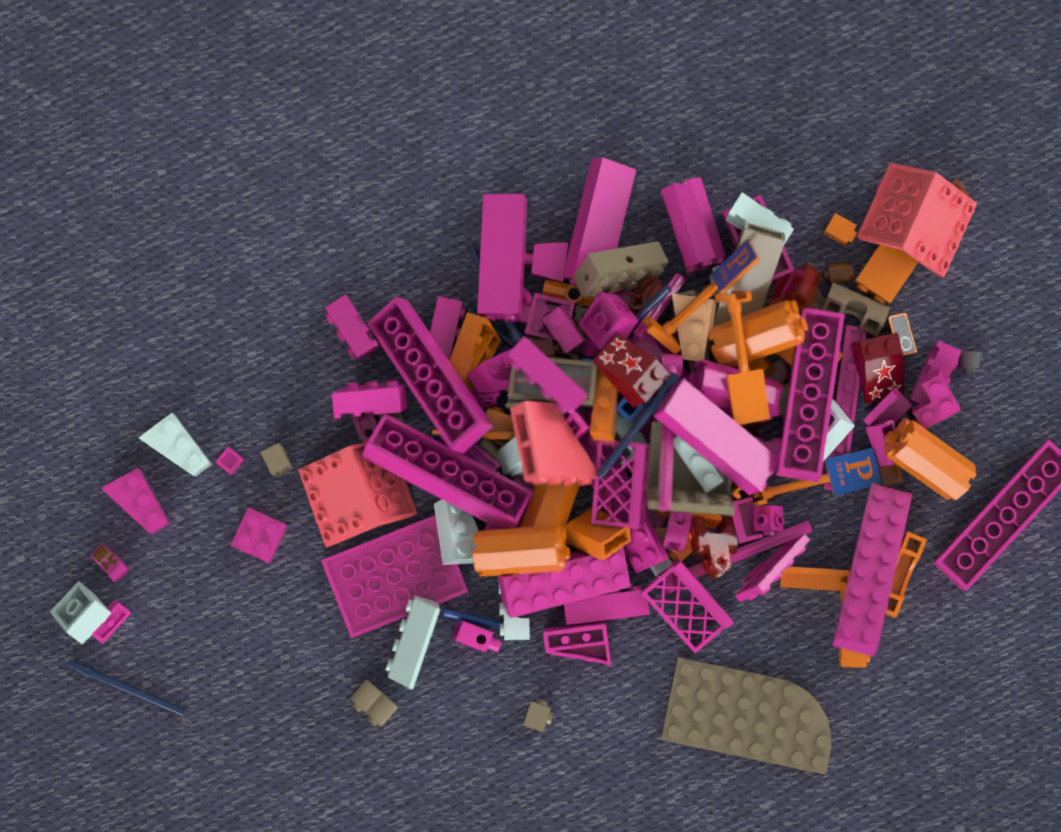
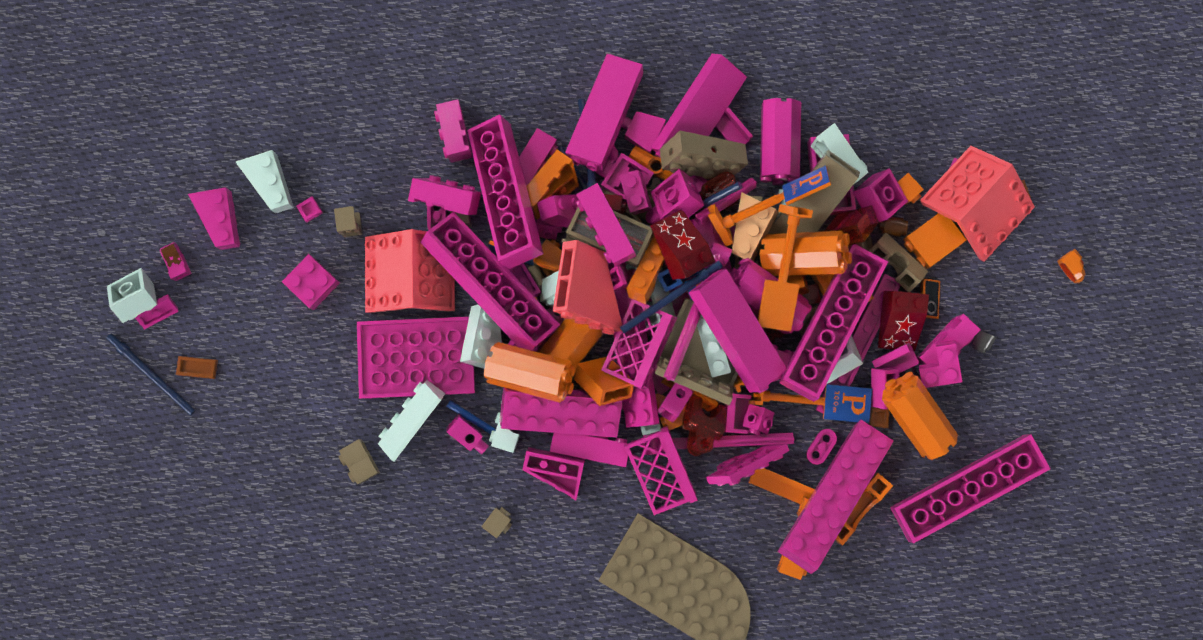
camera: 20 degrees right, 0 degrees up
(170, 664) = (196, 367): none -> dark orange tile
(640, 228) = (732, 128): none -> dark pink panel
(815, 244) = (882, 193): none -> dark pink brick
(842, 525) = (821, 447): none -> dark pink plate
(1036, 251) = (1072, 266): none -> orange rock

